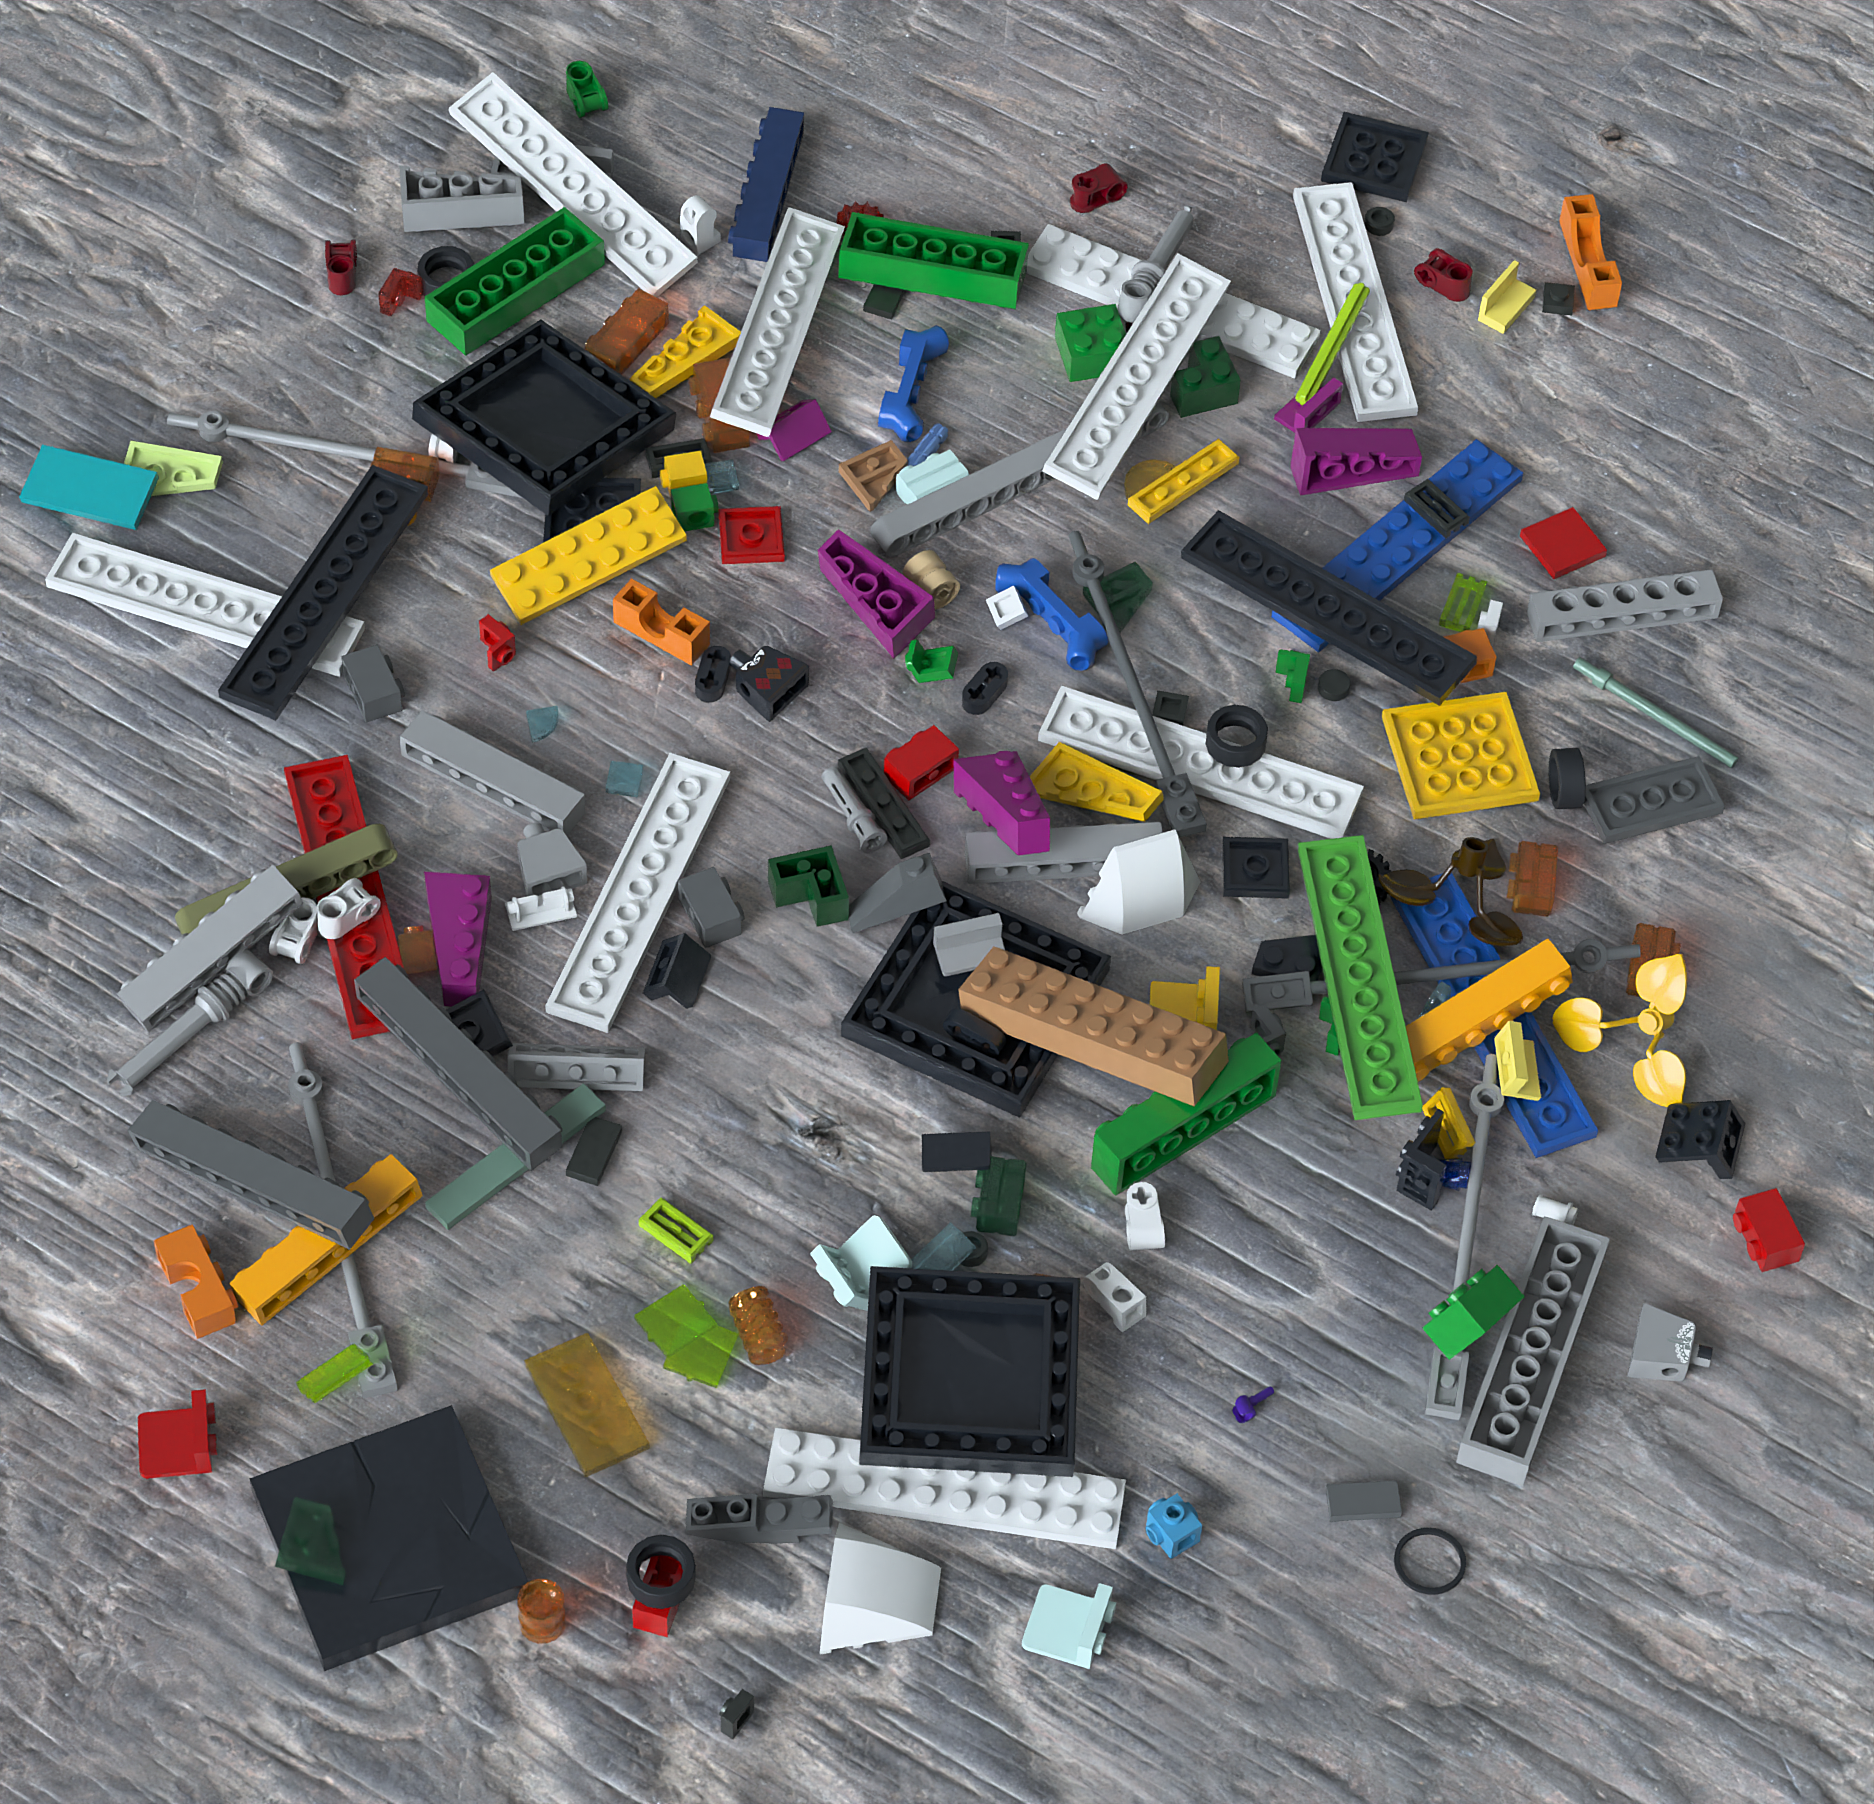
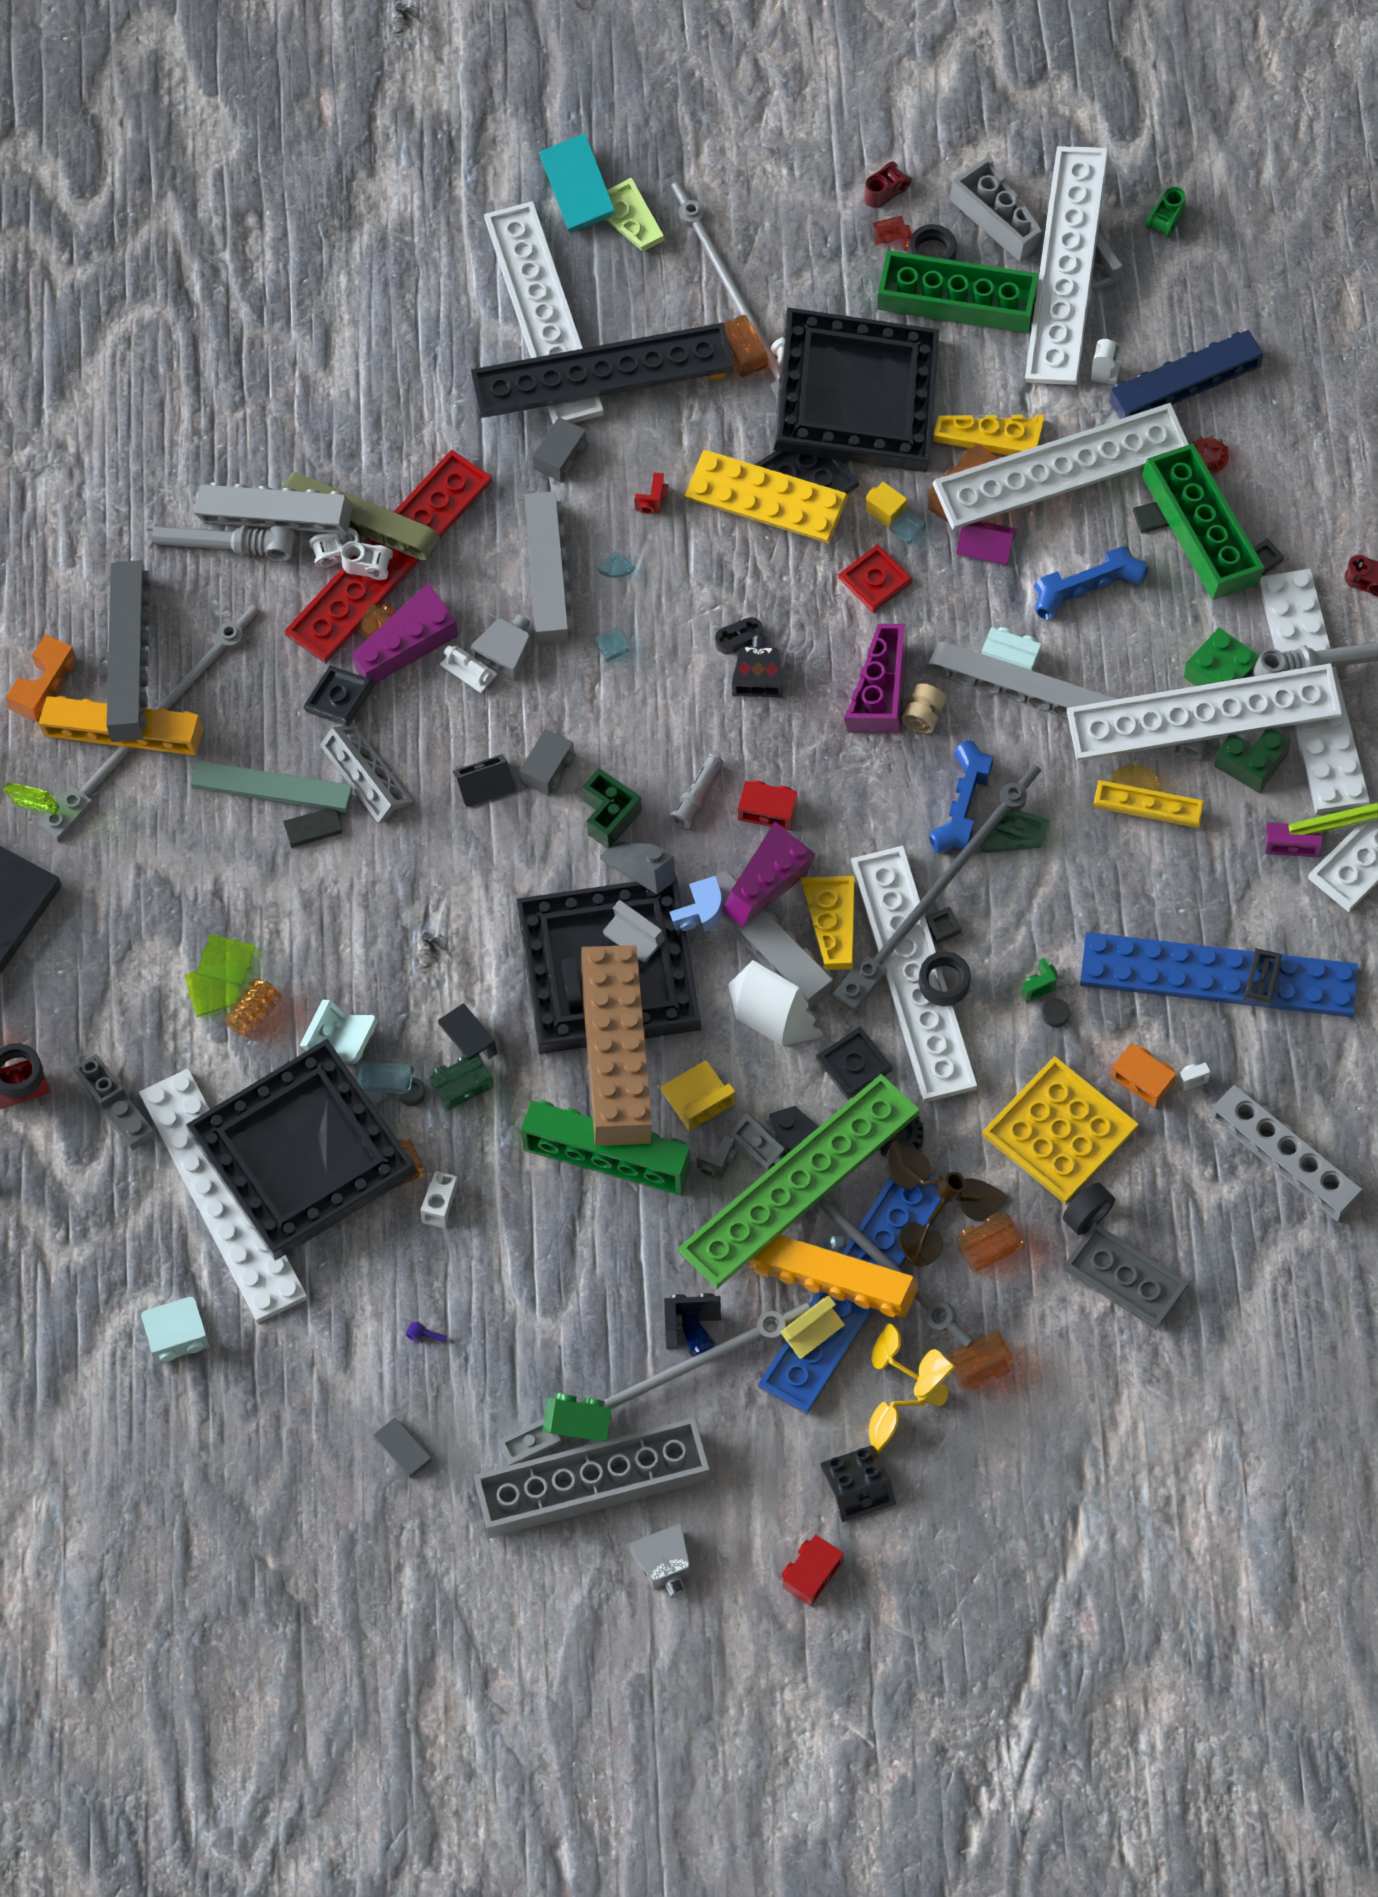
camera: 60 degrees right, 10 degrees up
(459, 1063) = (302, 705): dark grey brick -> none
(586, 1404) = (126, 952): clear yellow tile -> none
(629, 330) = (976, 387): clear orange brick -> none
(637, 893) = (527, 713): white plate -> none
(640, 613) = (747, 575): orange arch -> none
(656, 465) = (918, 504): pearl dark grey tile -> none
(666, 1238) = (289, 934): lime tile -> none
(694, 506) = (862, 528): green brick -> none
(873, 472) = (989, 611): medium nougat wing -> none
(876, 1593) = (116, 1202): white wedge -> none
(885, 803) = (720, 806): pearl dark grey tile -> none
(929, 444) = (1043, 630): medium blue axle -> none
(931, 663) = (855, 754): green bracket -> none
(990, 691) = (866, 802): black beam -> none
(998, 863) = (705, 911): none -> light blue brick
(1007, 607) = (942, 769): white plate -> none
(1143, 1220) = (508, 1180): white piece -> none
(1173, 1525) = (289, 1344): dark azure brick -> none
(1329, 607) = (1106, 965): black plate -> none
(1352, 457) = (1263, 895): magenta wedge -> none
(1427, 1590) = (394, 1541): black piece -> none
(1452, 1122) = (735, 1314): yellow tile -> none
(1469, 585) = (1200, 1038): clear neon green tile -> none
(1555, 1210) = (722, 1431): white pin -> none
(1563, 543) = (1314, 1079): red tile -> none
(1604, 680) = (1209, 1181): sand green bar -> none

